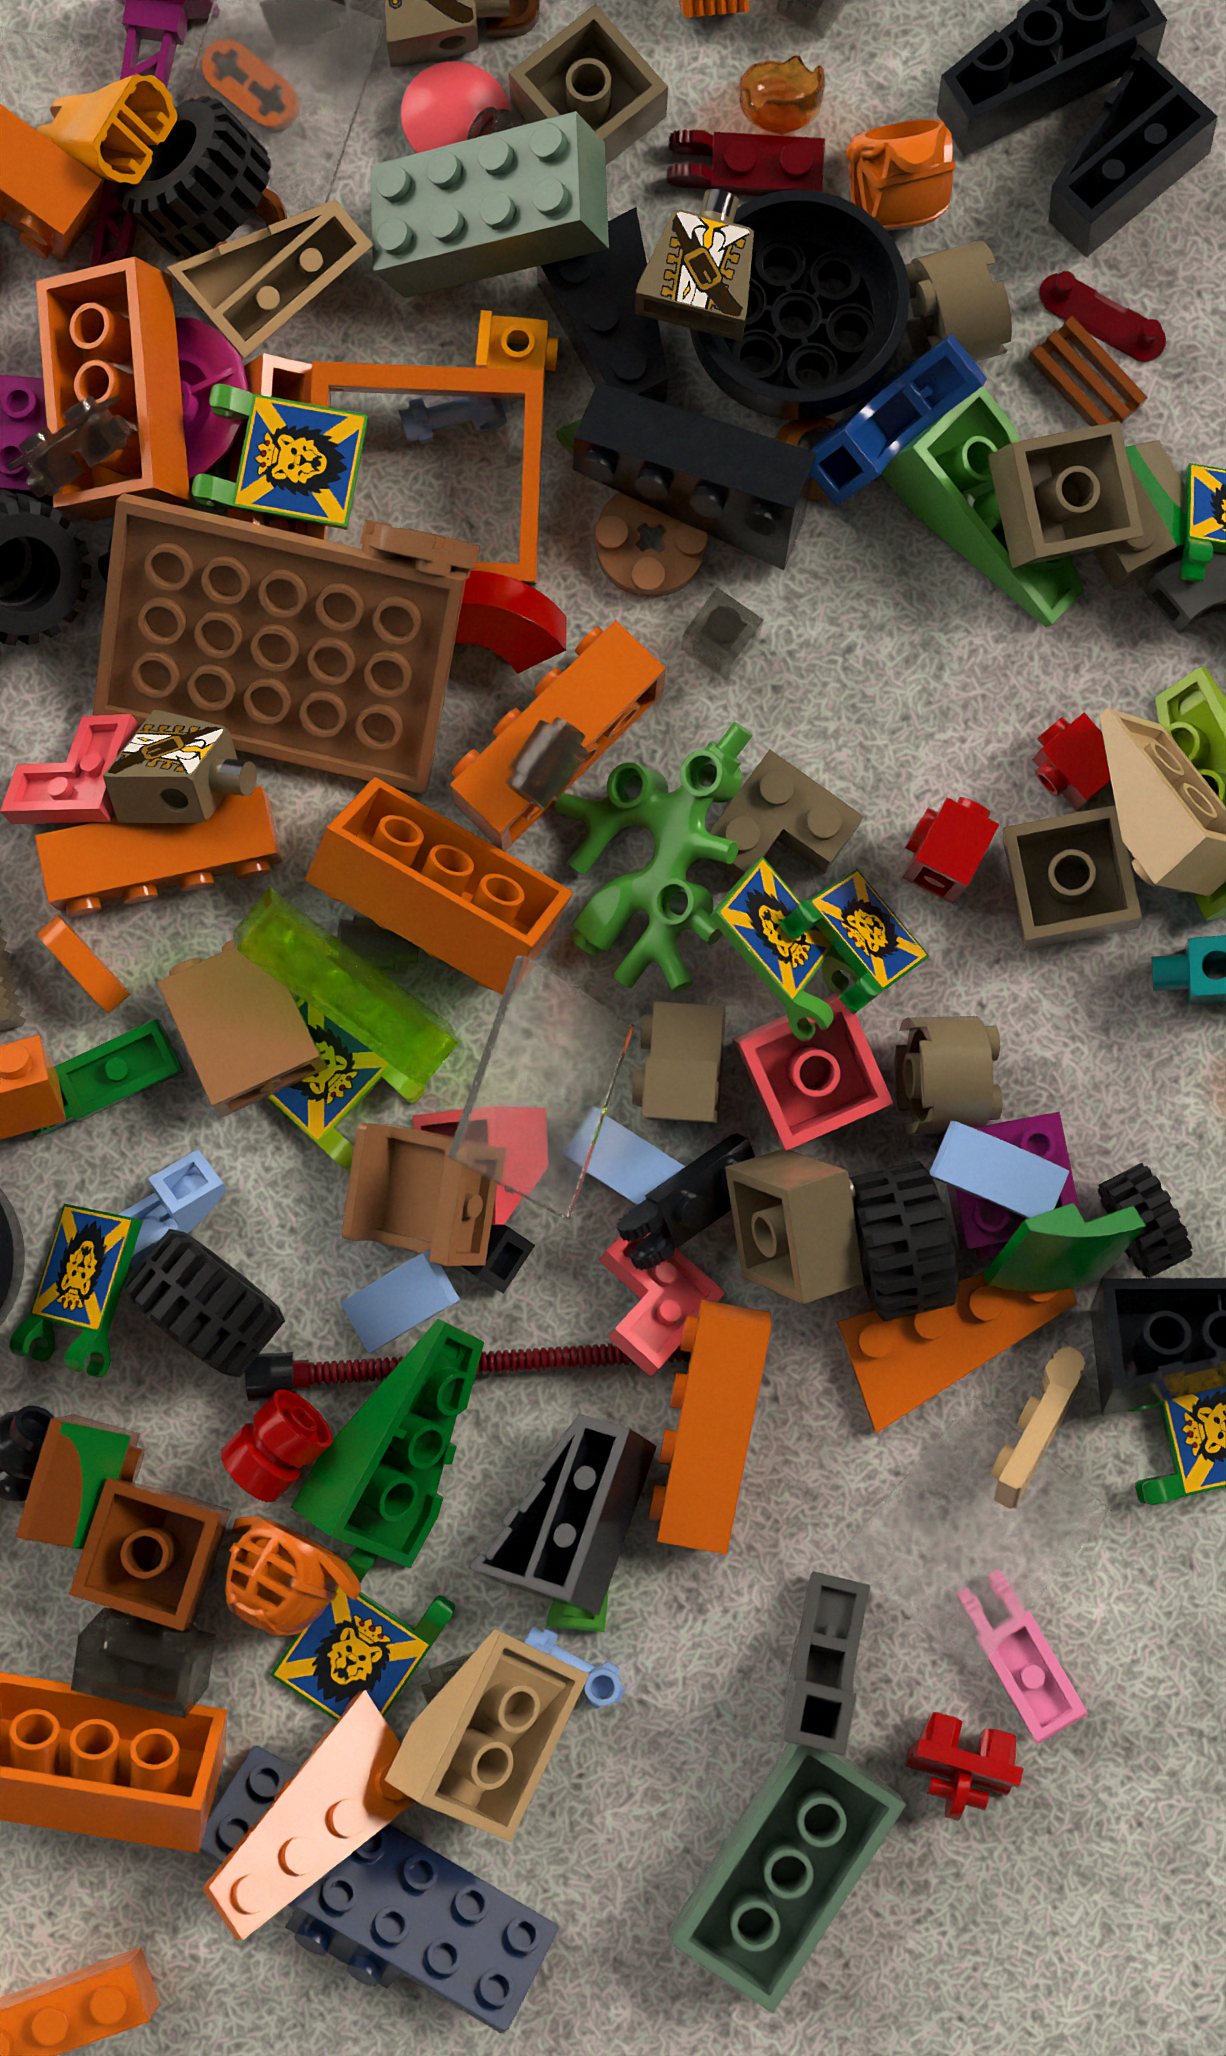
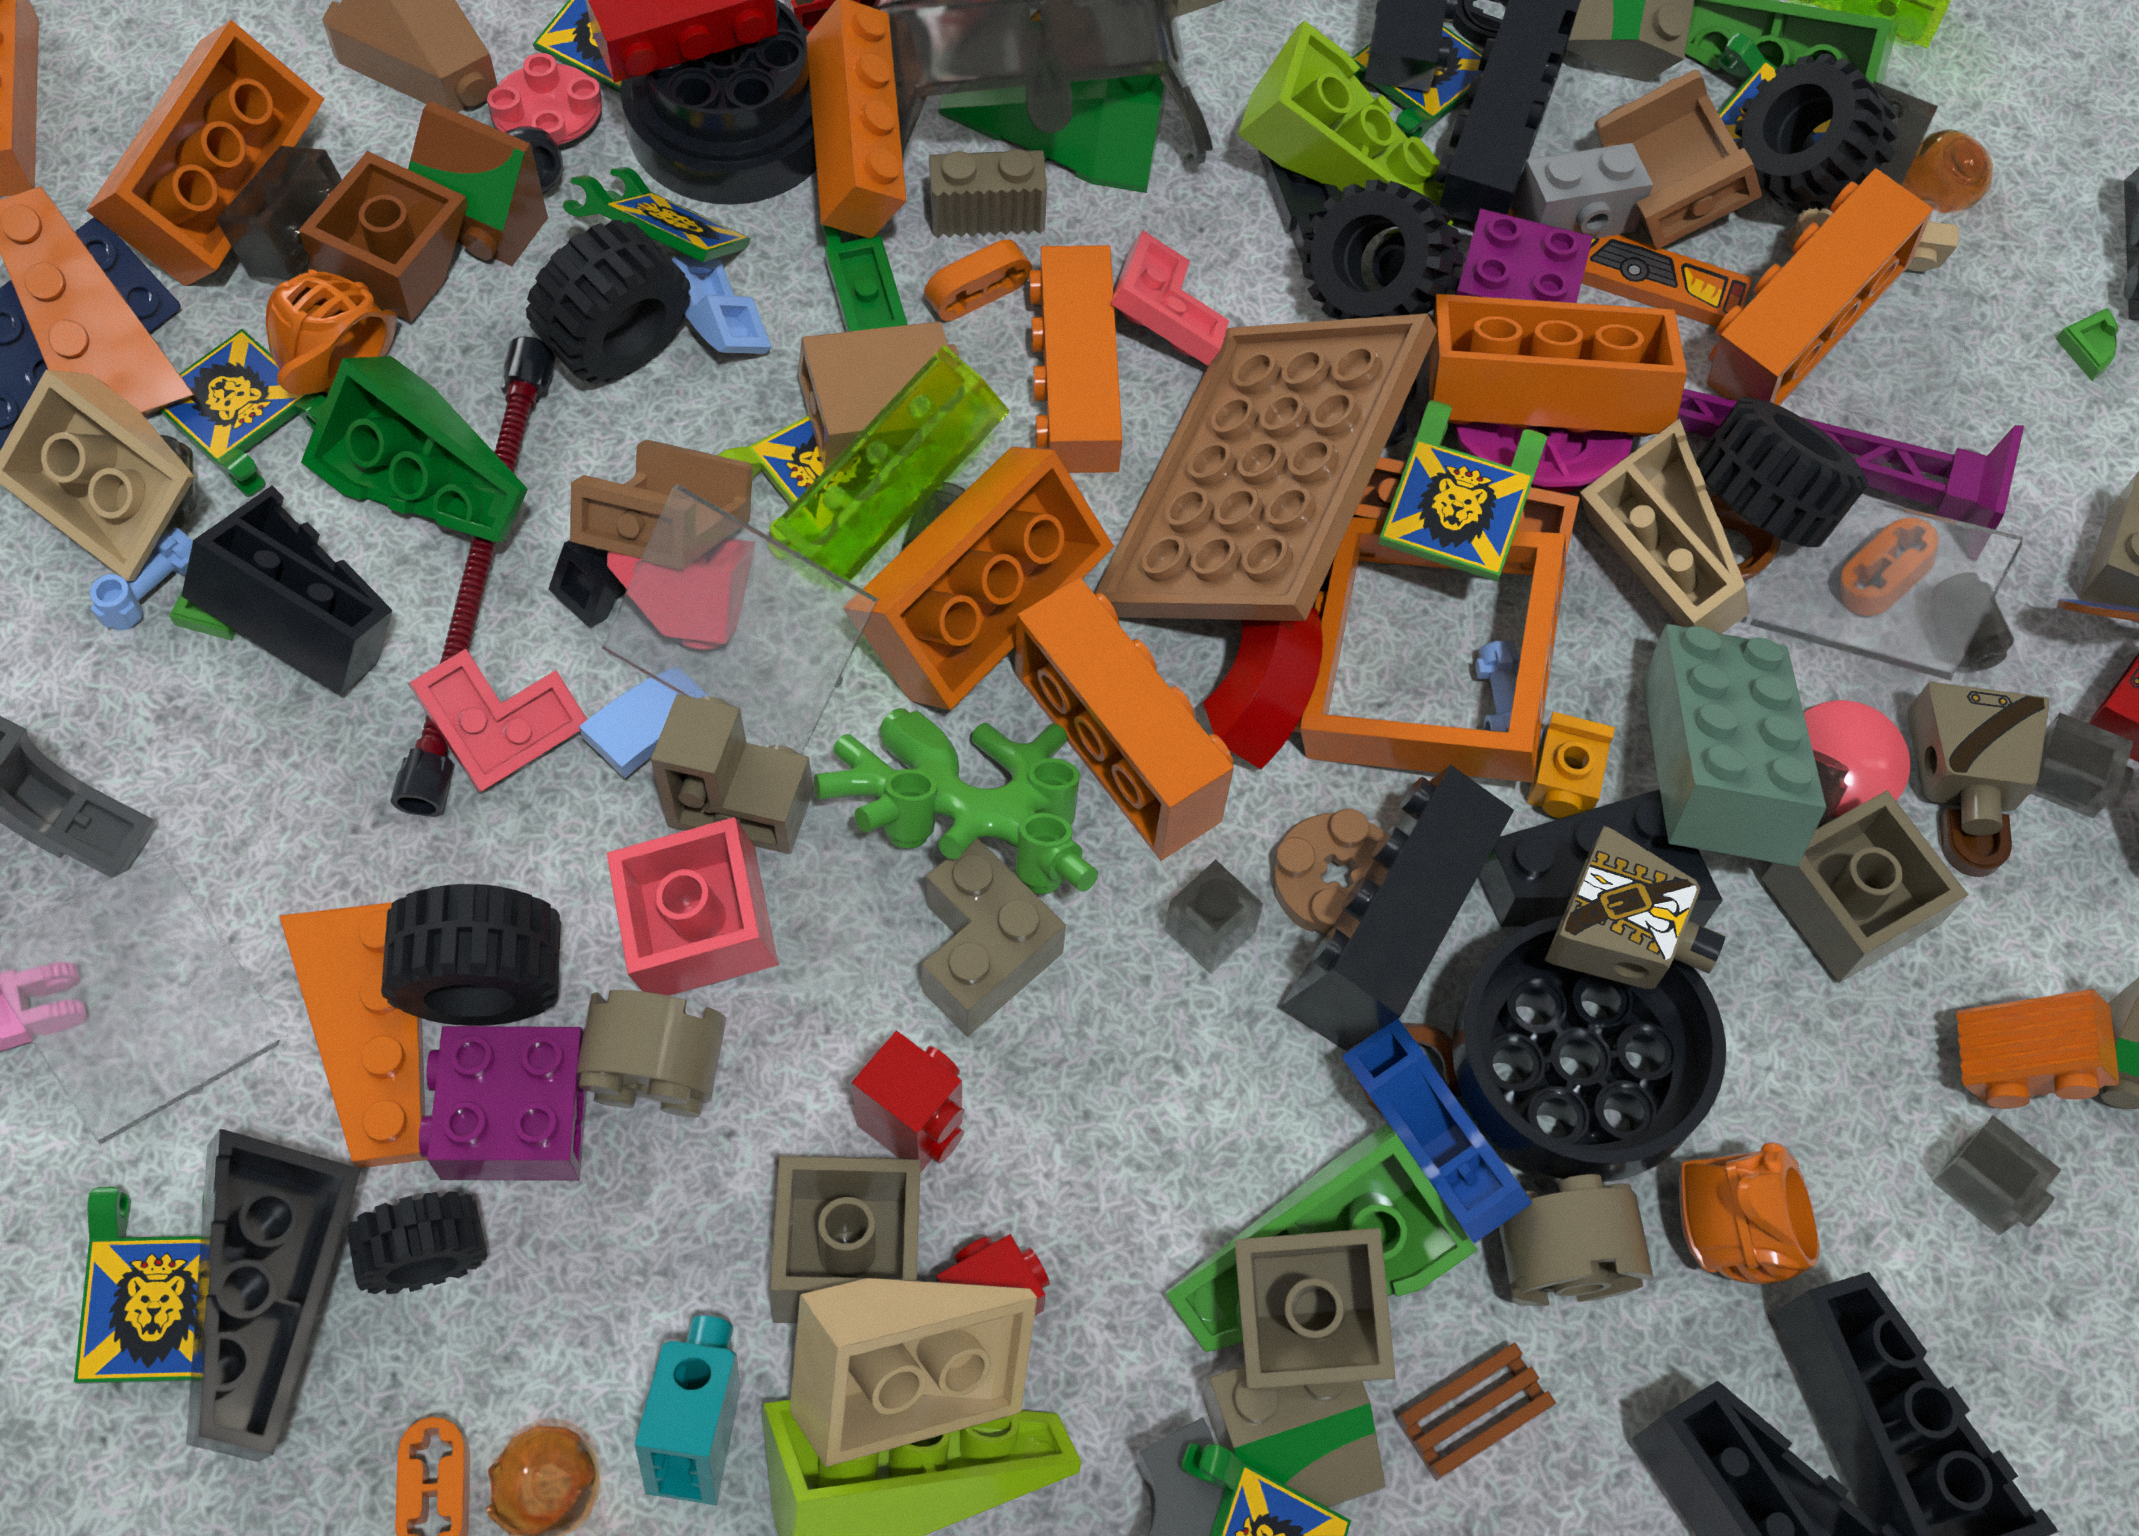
camera: 100 degrees right, 20 degrees down
(51, 456) = (1493, 299): clear smoke hinge -> none
(113, 126) = (1834, 398): light orange piece -> none
(176, 771) = (1149, 361): dark tan torso -> none
(272, 1449) = (454, 350): red wheel -> none
(399, 1301) = (553, 474): light blue slope -> none
(430, 551) = (1341, 589): medium nougat plate -> none
(547, 762) = (1080, 656): clear smoke brick -> none
(683, 1204) = (585, 764): black hinge -> none
(712, 1426) = (338, 735): orange brick -> none
(747, 162) = (1775, 1065): dark red hinge -> none
(750, 923) = (841, 875): flag -> none
(781, 95) = (1857, 1103): clear orange hair -> none
(795, 1225) = (521, 842): dark tan brick -> none
(863, 934) = (834, 992): flag -> none
(997, 1171) = (508, 1057): light blue slope -> none
(1040, 1423) = (220, 1077): tan hinge -> none
(1063, 1250) = (406, 1095): green slope -> none
(1102, 317) = (1553, 1452): dark red piece -> none

